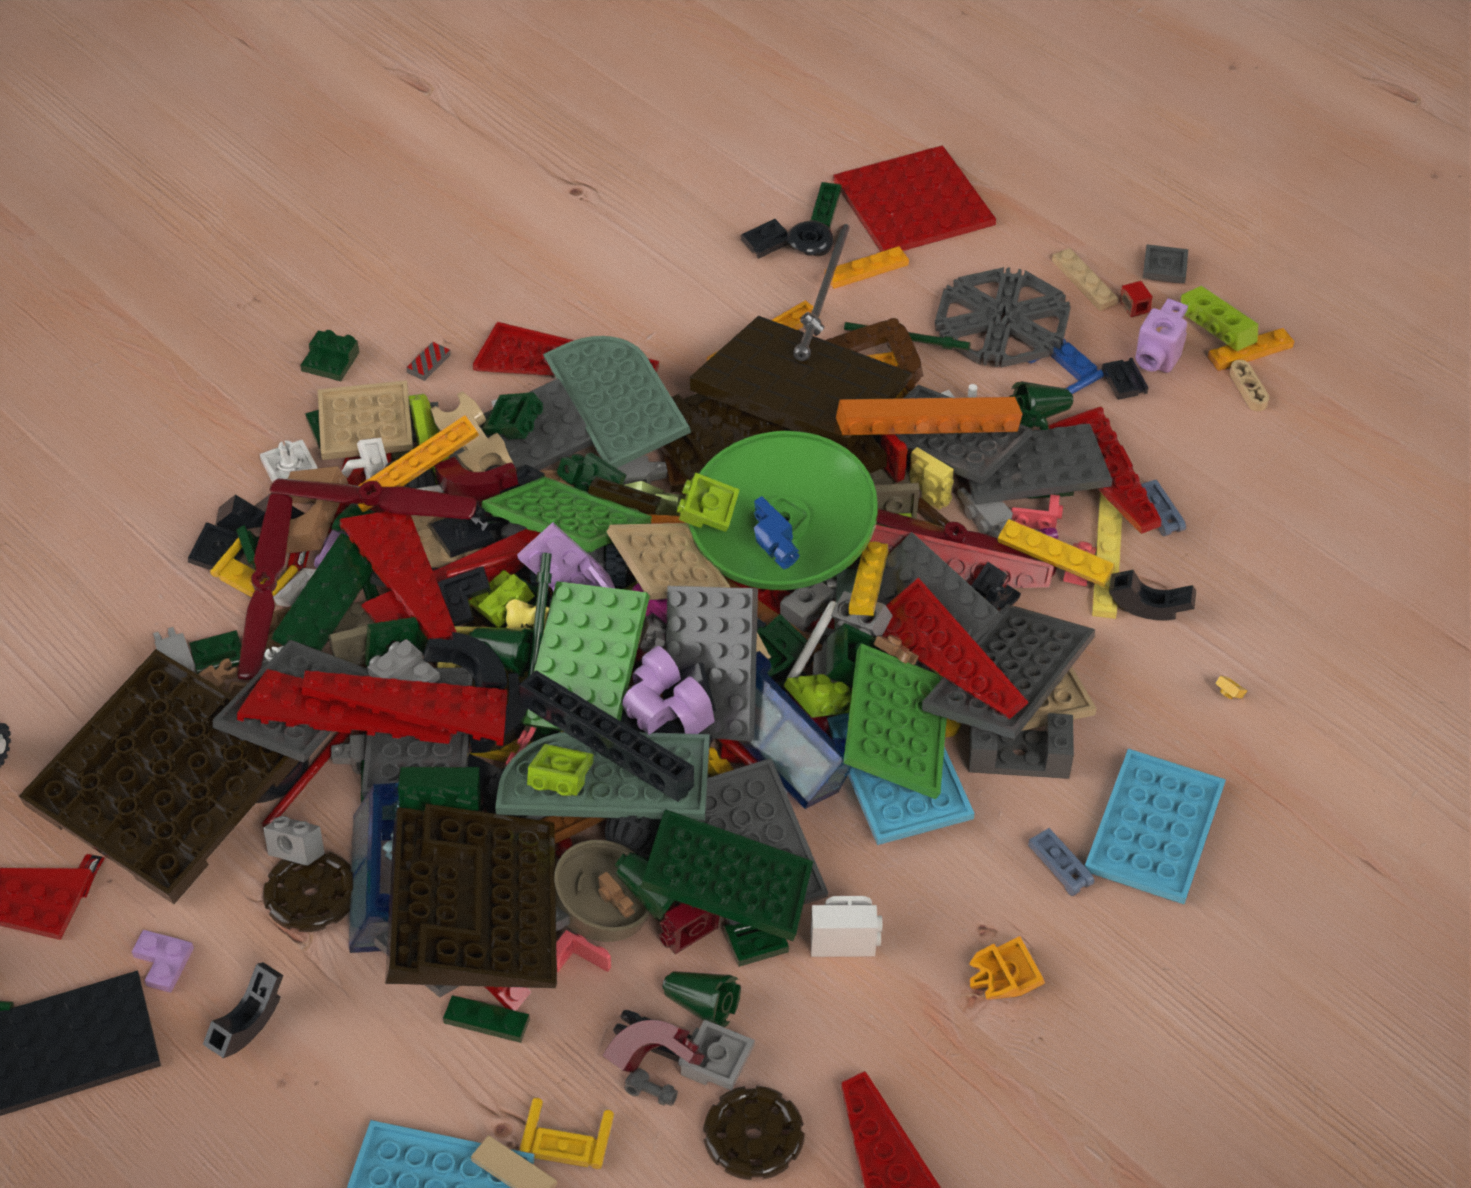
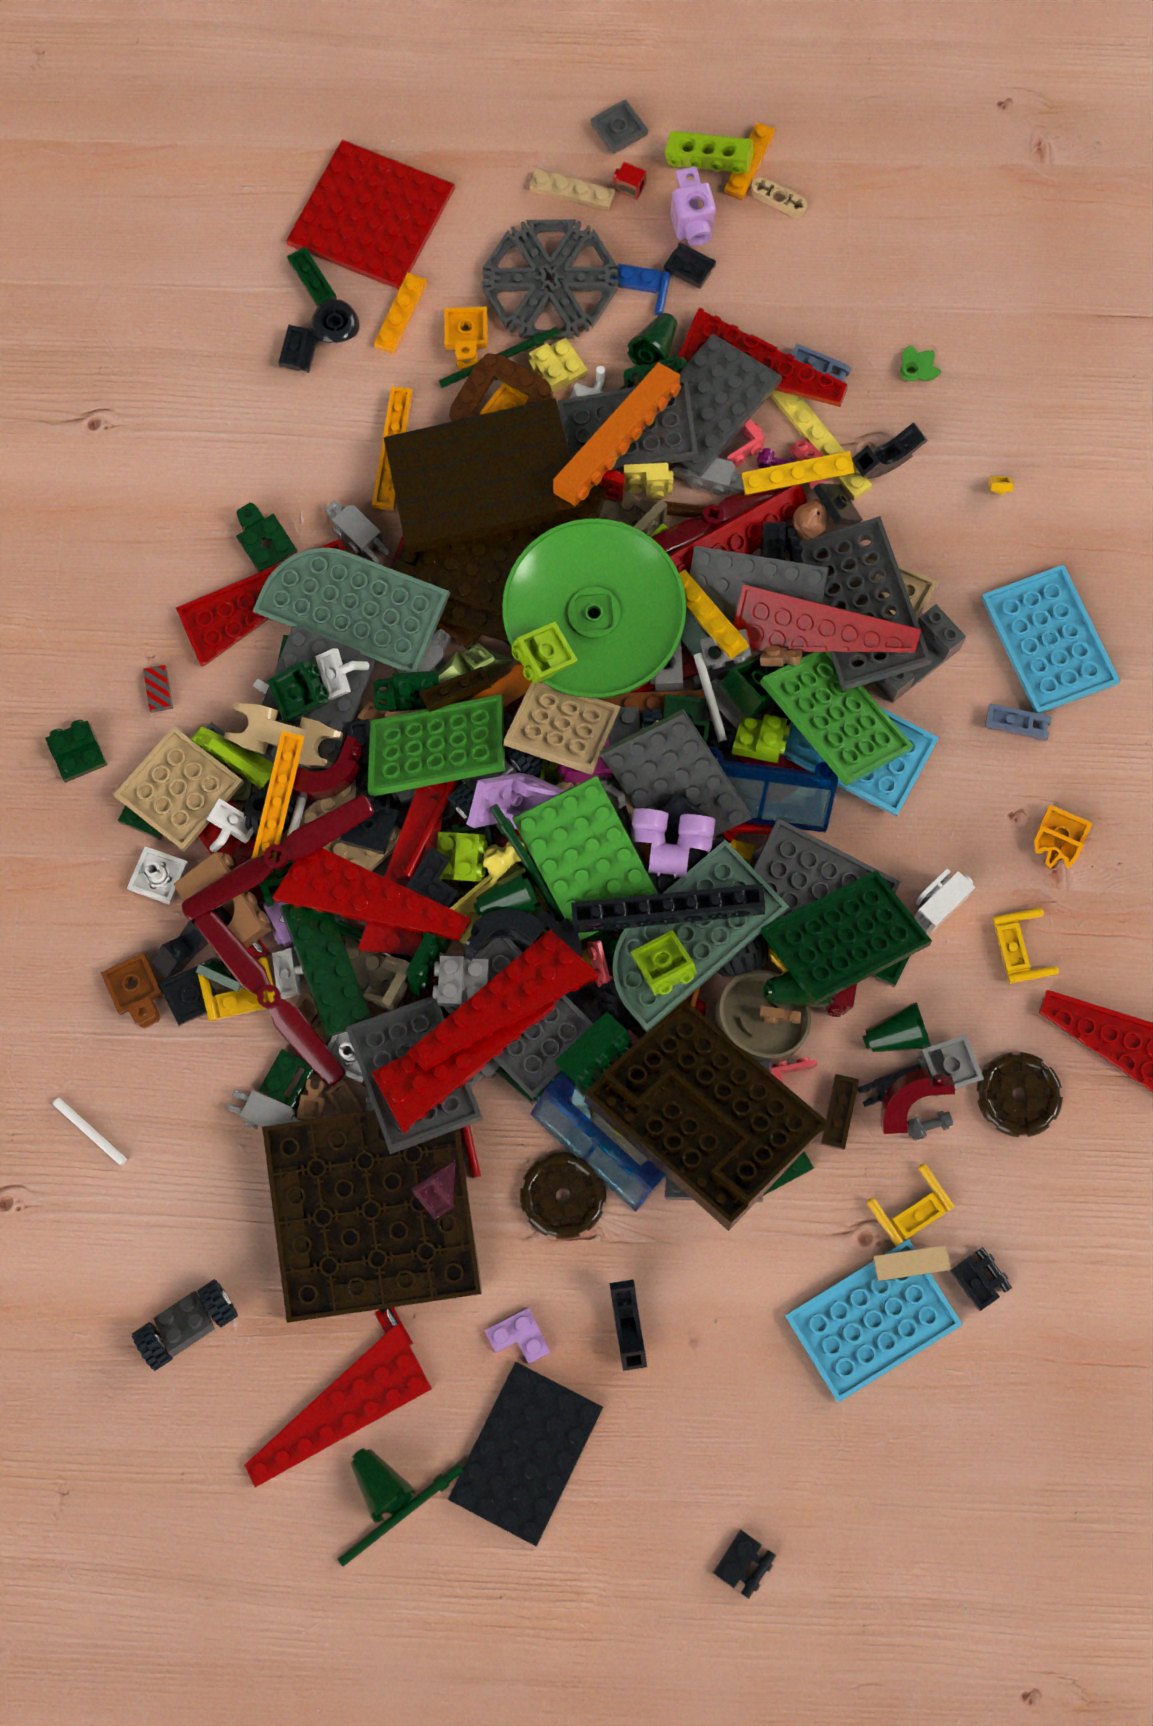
camera: 40 degrees left, 25 degrees up
(52, 579) = (90, 1131): none -> white bar
(180, 525) = (136, 1000): none -> dark orange plate
(218, 786) = (437, 1191): none -> clear pink slope
(294, 840) = (519, 1174): light grey brick -> none
(552, 418) = (334, 672): none -> white plate
(588, 1015) = (840, 1111): none -> dark brown plate
(610, 317) = (258, 529): none -> dark green plate
(677, 364) = (356, 530): none -> light grey hinge
(774, 534) = (616, 638): blue plate -> none
(811, 320) = (432, 411): flat silver bar -> none
(872, 1018) = (1013, 947): none -> yellow plate
(893, 305) = (462, 341): none -> light orange plate
(946, 370) = (557, 364): none -> light yellow plate
(1035, 595) = (810, 519): none -> nougat hair
(1069, 598) = (837, 504): none -> black plate
(1248, 564) = (920, 364): none -> bright green plate

